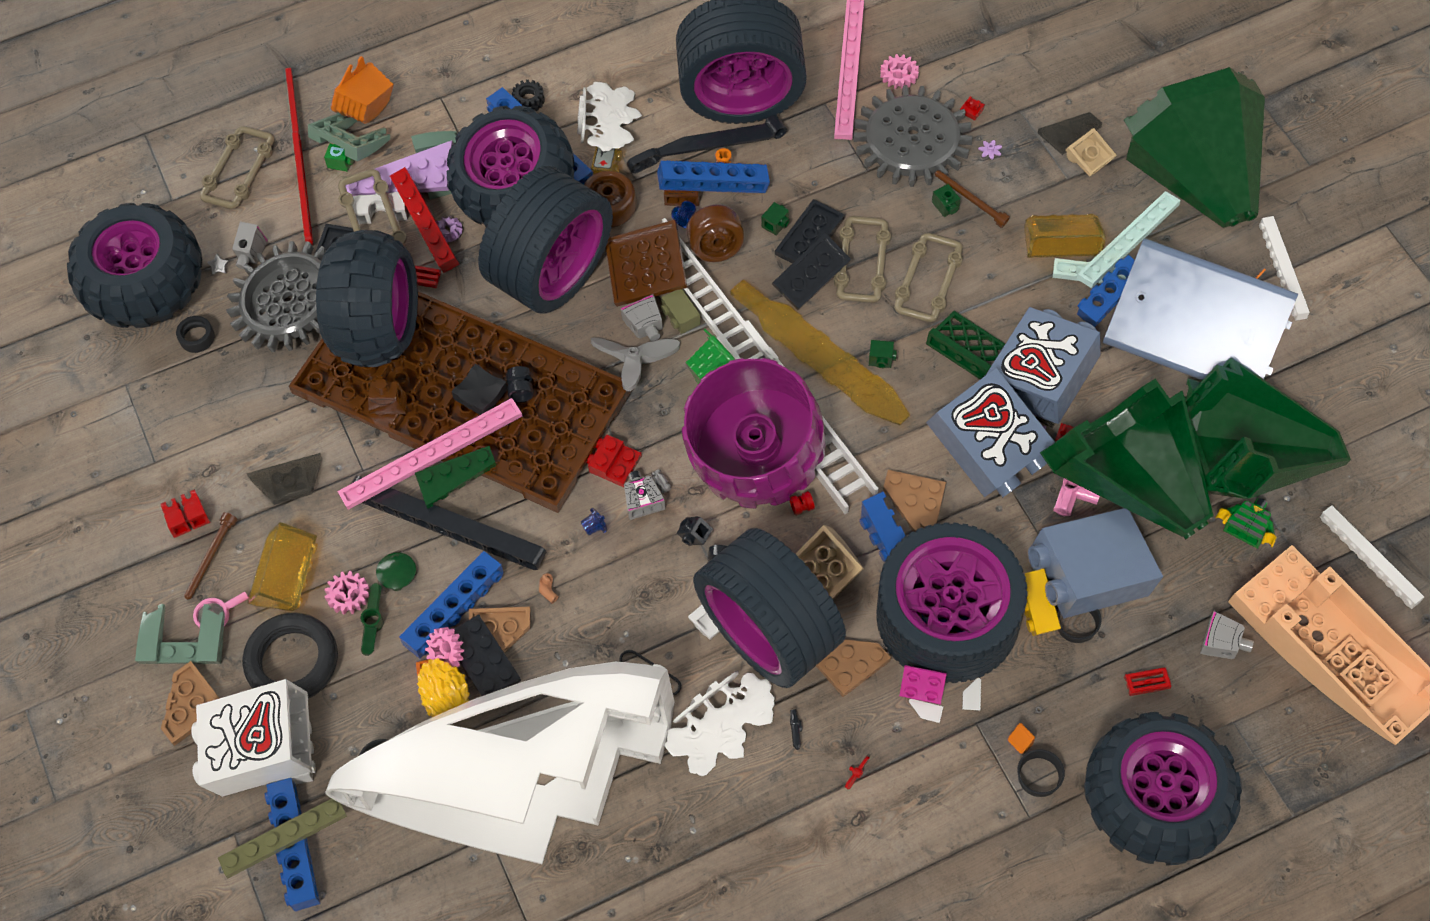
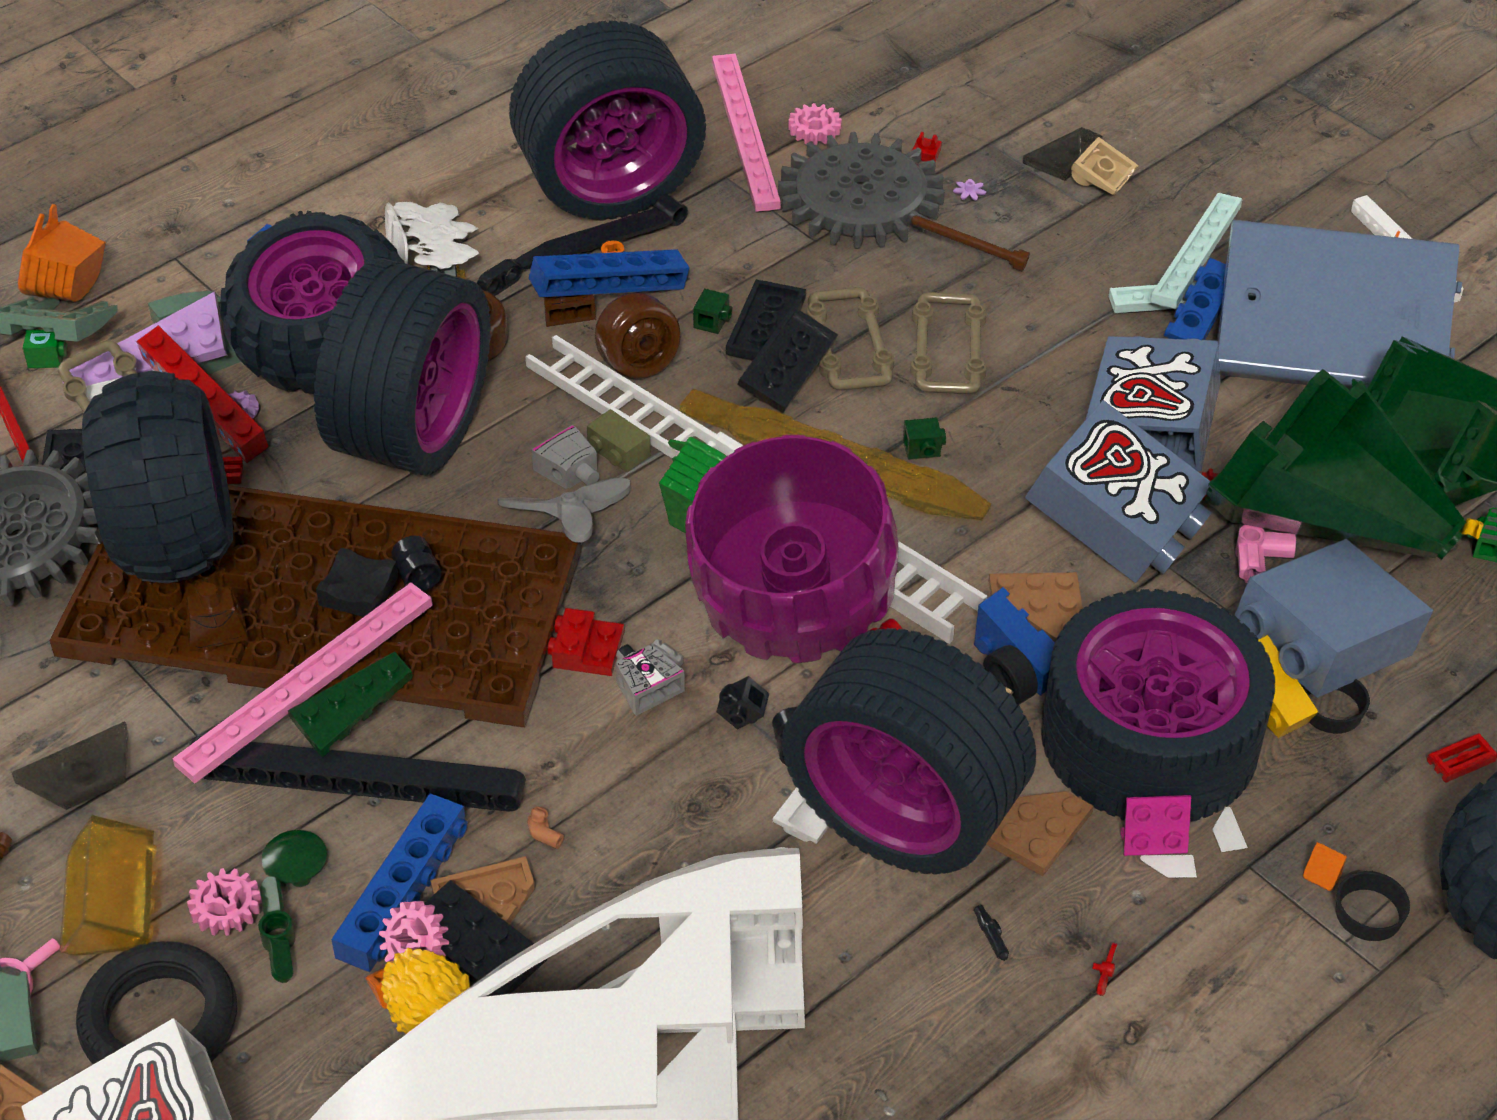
camera: 20 degrees left, 15 degrees down
(594, 522) = (586, 725): clear blue piece -> none
(646, 263) = (549, 389): reddish brown plate -> none
(683, 213) = (581, 327): clear blue piece -> none
(721, 727) = (877, 955): white plant -> none
(870, 552) = (1013, 671): none -> black tyre
(946, 200) = (936, 251): dark green brick -> none
(962, 354) = (1026, 415): dark green fence -> none
(1064, 235) = (1111, 262): clear yellow windscreen -> none
(1204, 143) = (1244, 128): dark green piece -> none

